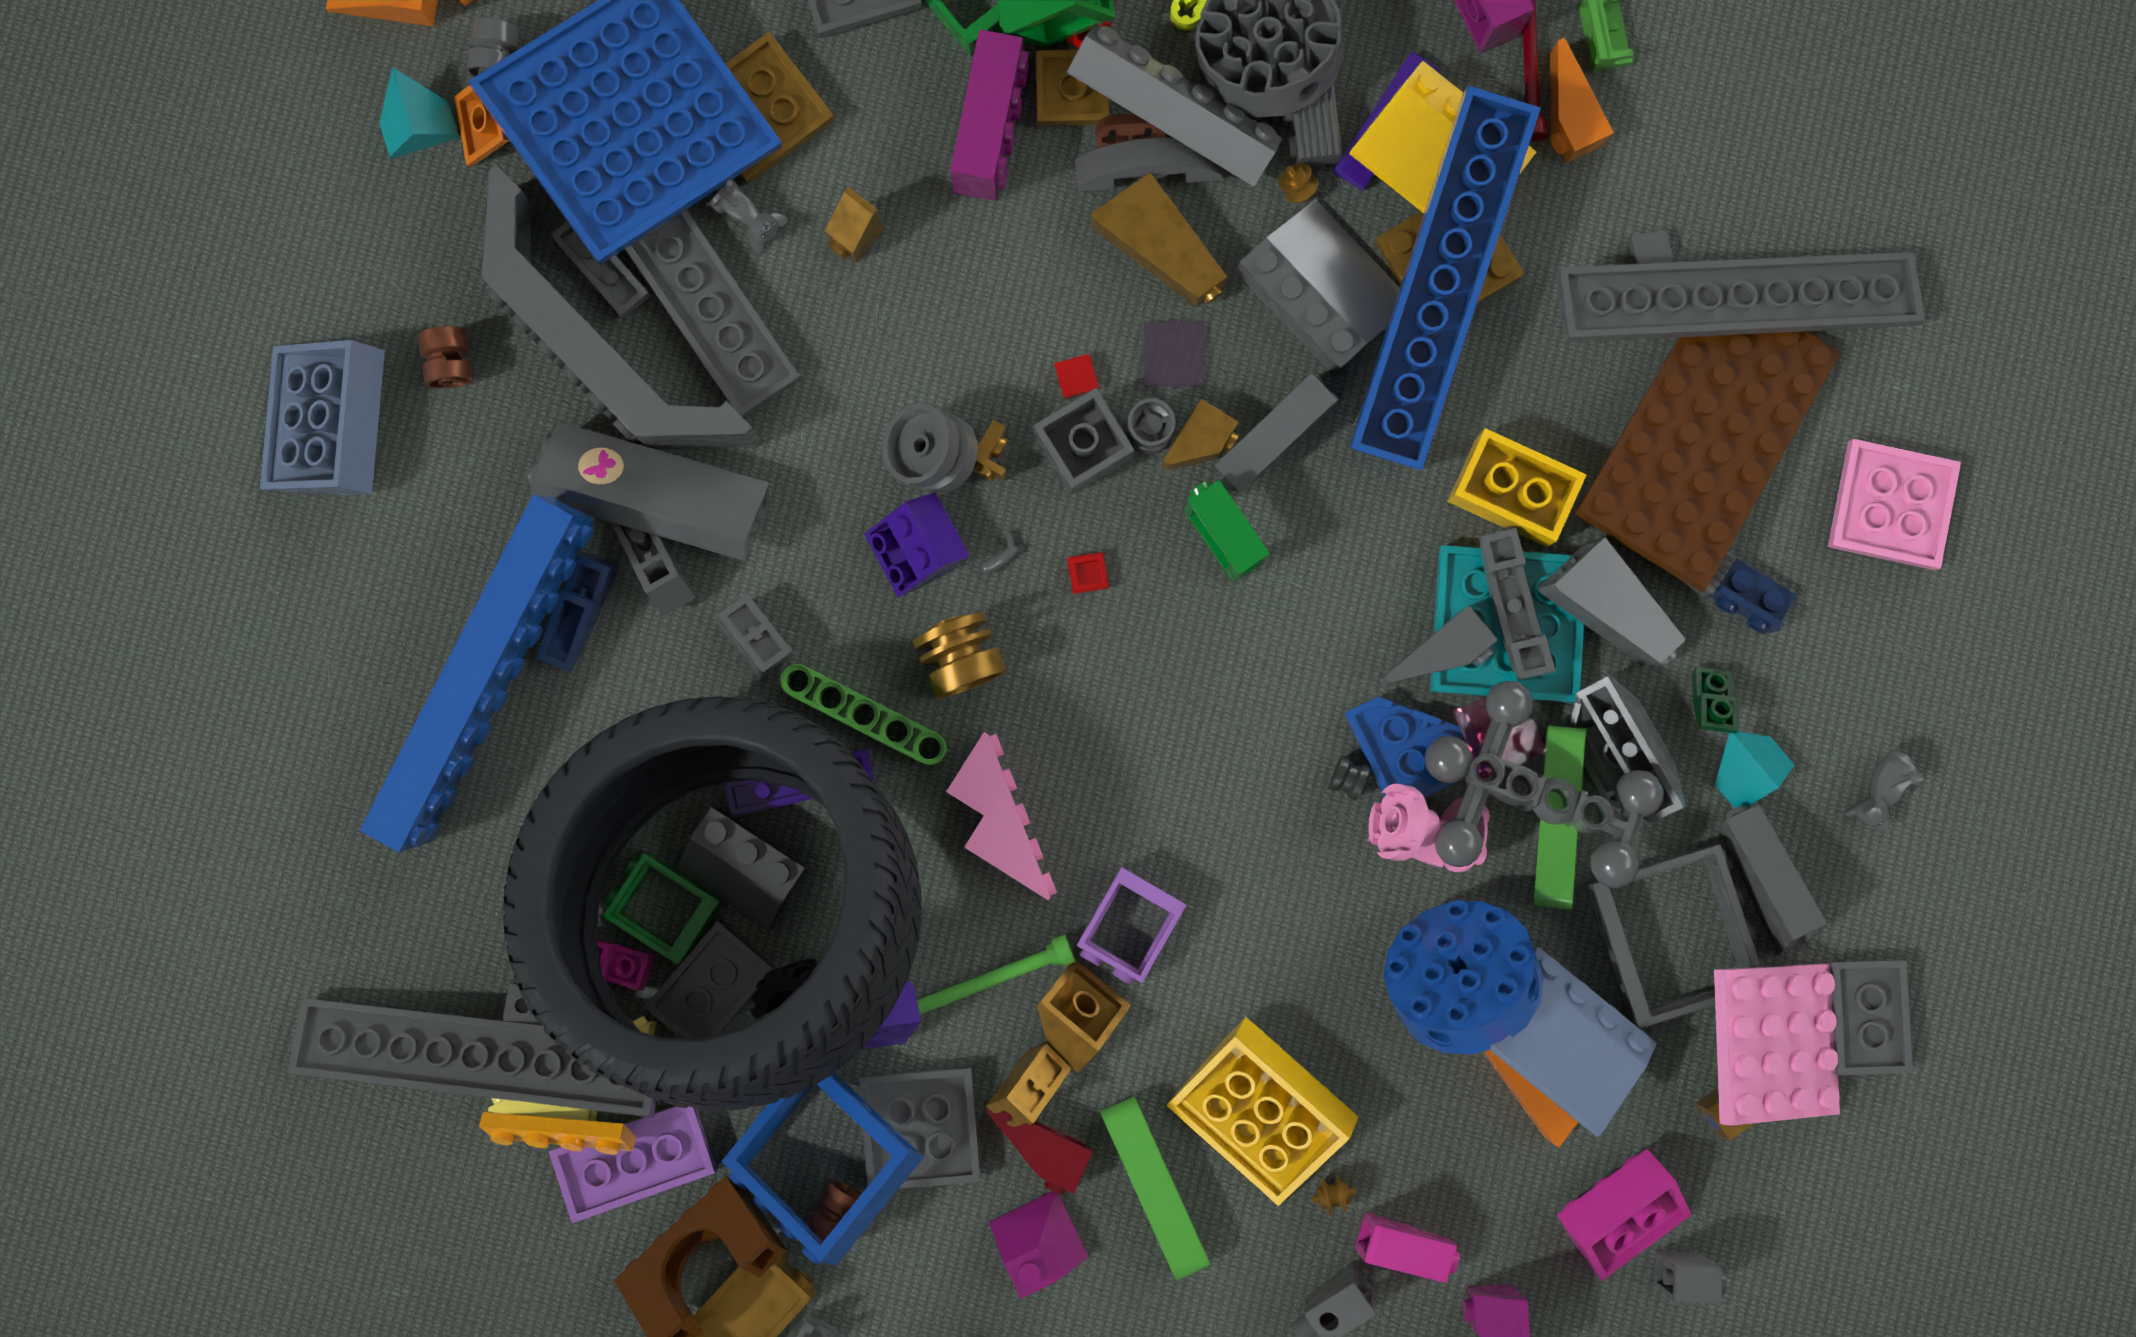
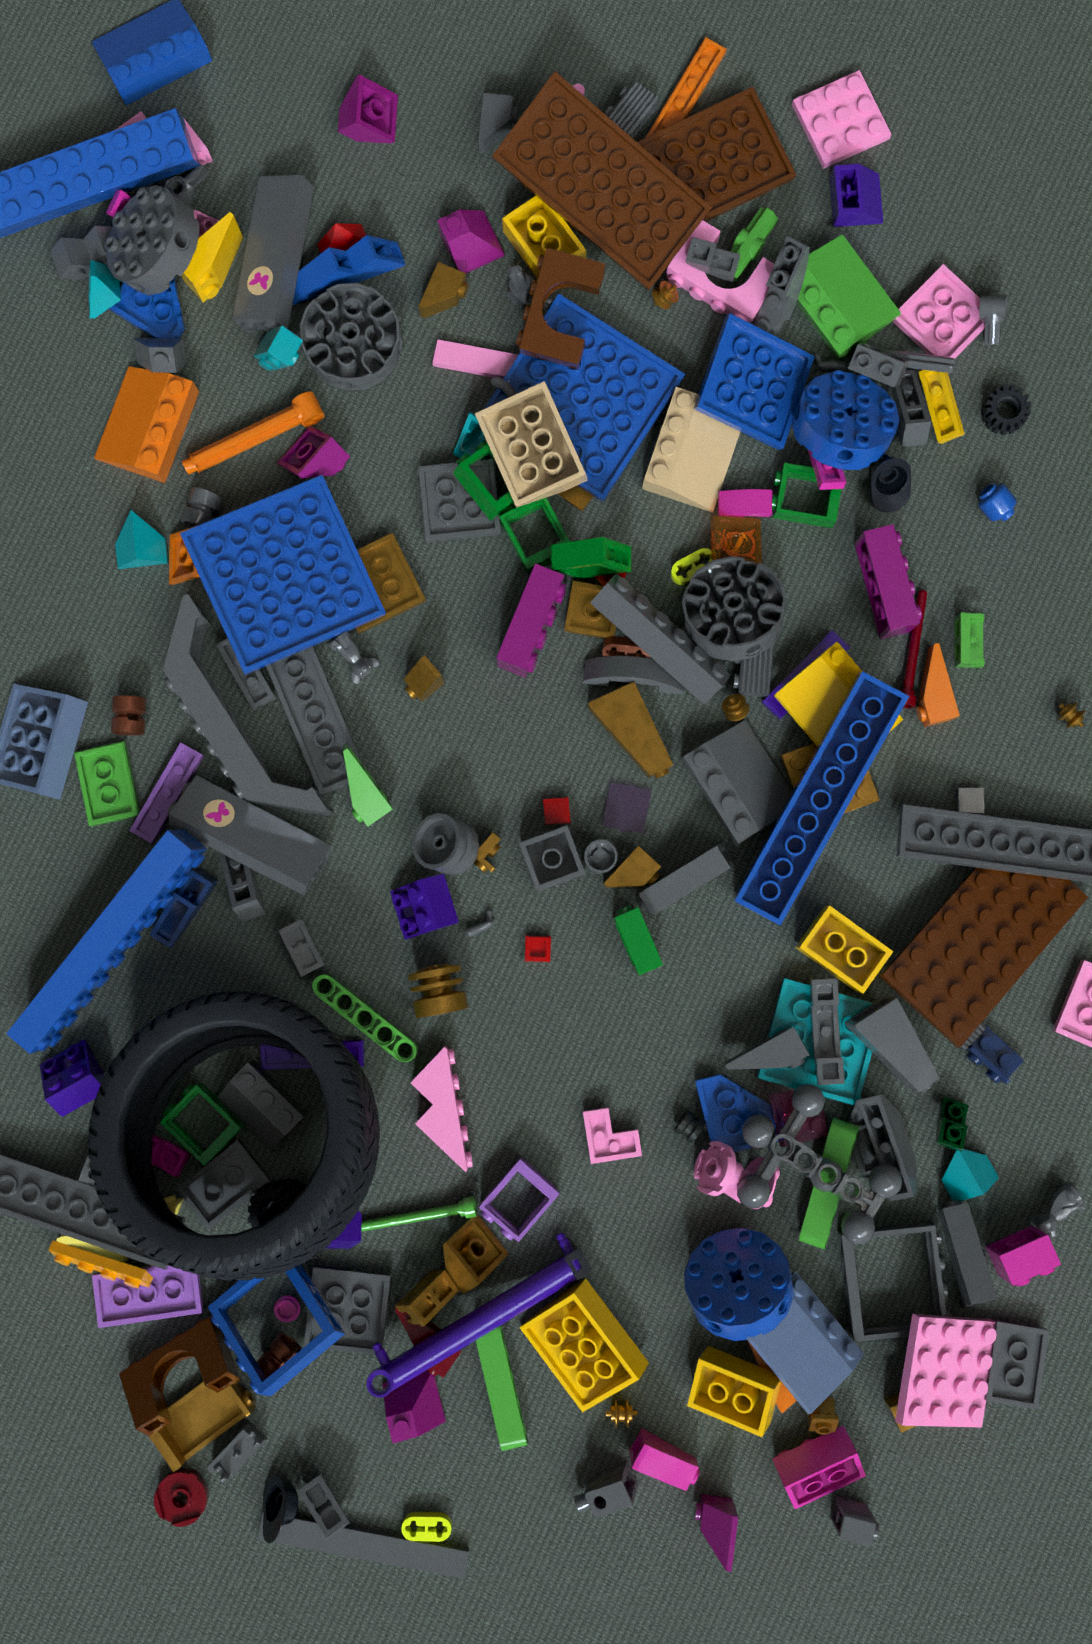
camera: 15 degrees right, 0 degrees up
(434, 461) = (107, 783): none -> bright green tile
(464, 881) = (71, 1078): none -> dark purple slope
(523, 446) = (167, 790): none -> medium lavender plate
(803, 403) = (366, 795): none -> slope
(834, 1144) = (287, 1308): none -> dark pink plate
(1111, 1102) = (479, 1321): none -> dark purple piece
(1235, 825) = (604, 1144): none -> bright pink plate
(1486, 1129) = (734, 1391): none -> yellow brick
(1616, 1143) = (823, 1418): none -> pearl gold bracket
(1767, 104) = (1071, 715): none -> pearl gold wheel
(1851, 862) = (1023, 1256): none -> dark pink brick

